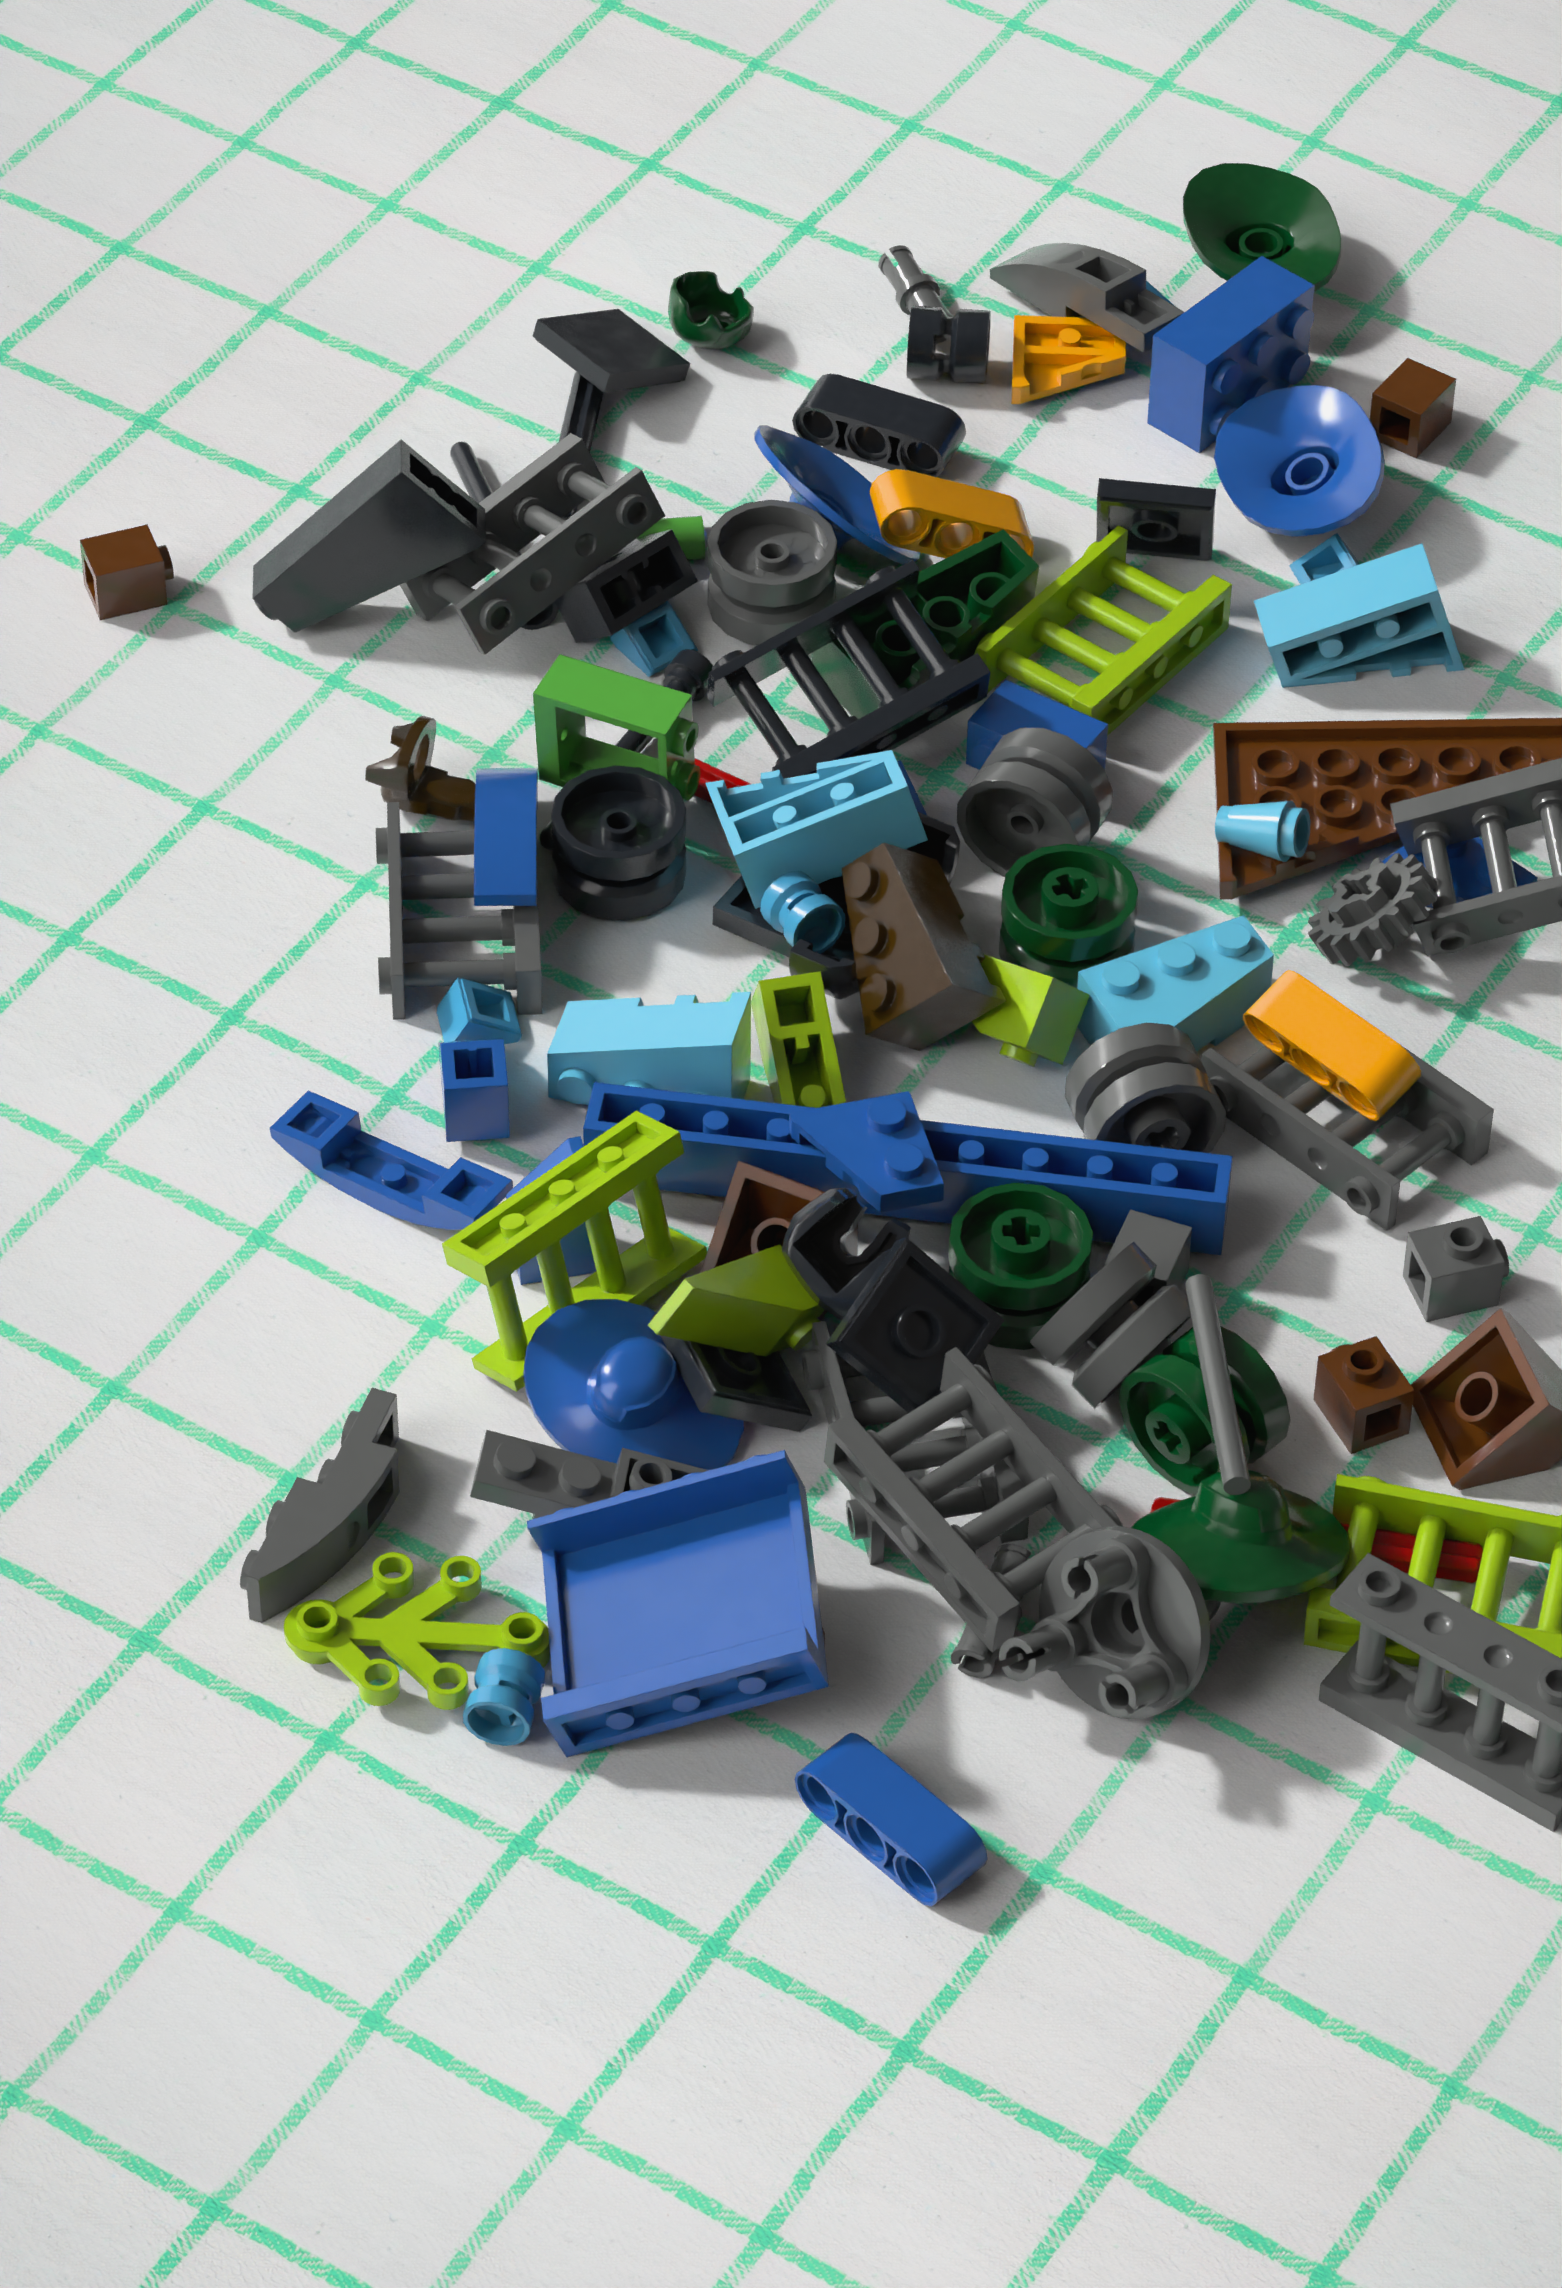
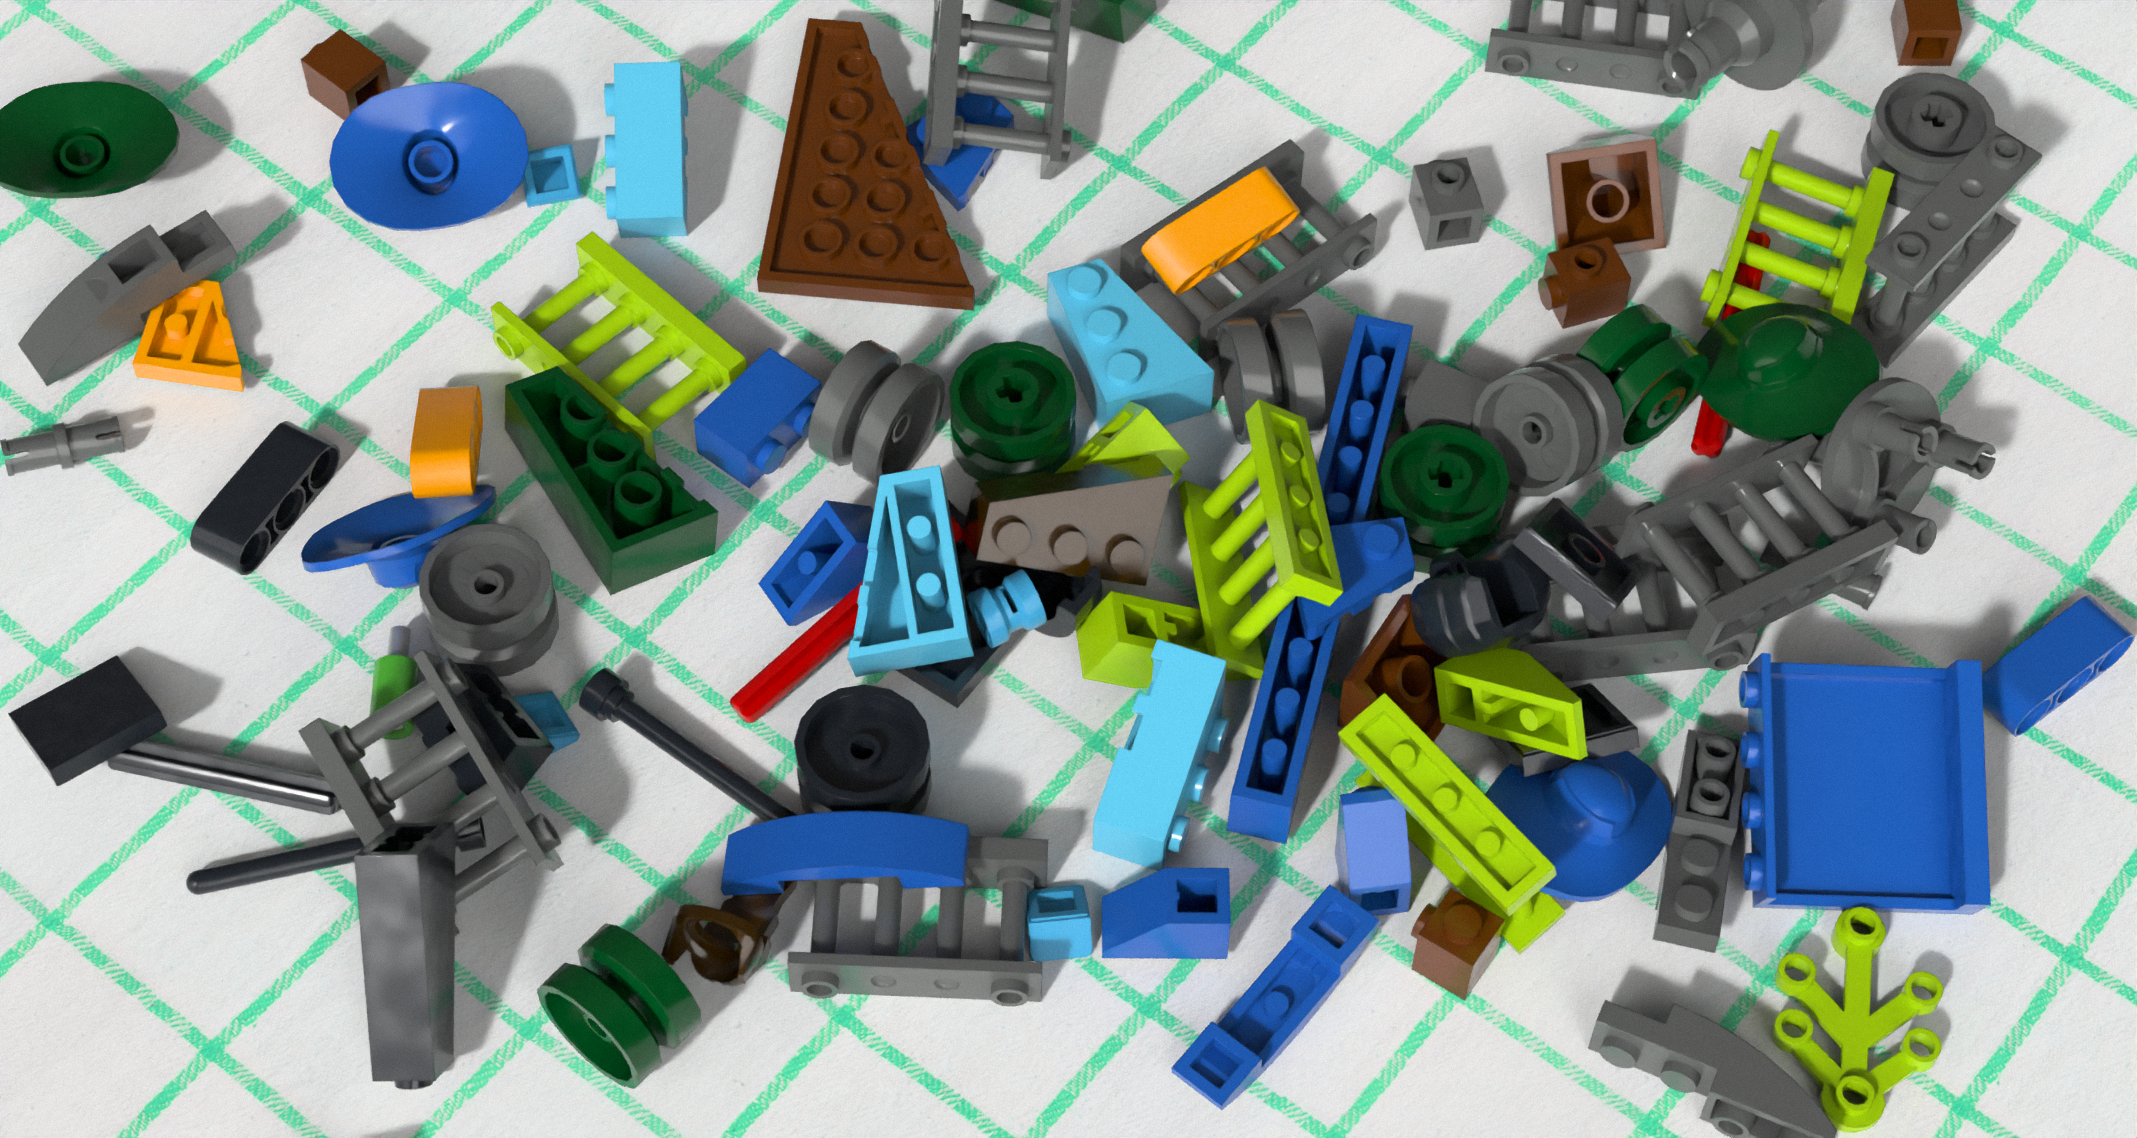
camera: 85 degrees left, 10 degrees up
(329, 695) = (619, 1005): none -> dark green wheel
(455, 1308) = (1456, 943): none -> reddish brown brick
(502, 1703) = (1937, 946): dark azure wheel -> none
(583, 689) = (748, 737): bright green window -> none
(706, 313) = (52, 625): dark green hair -> none
(900, 713) = (742, 499): black fence -> none
(944, 1074) = (1296, 542): none -> lime fence
(968, 345) = (164, 421): black wheel -> none
(1158, 517) = (489, 277): black tile -> none
(1217, 1385) = (1680, 332): dark grey bar -> none
(1230, 350) = (262, 188): blue brick -> none
(1265, 828) = (933, 245): medium azure cone -> none
(1372, 909) = (1050, 180): dark grey gear -> none

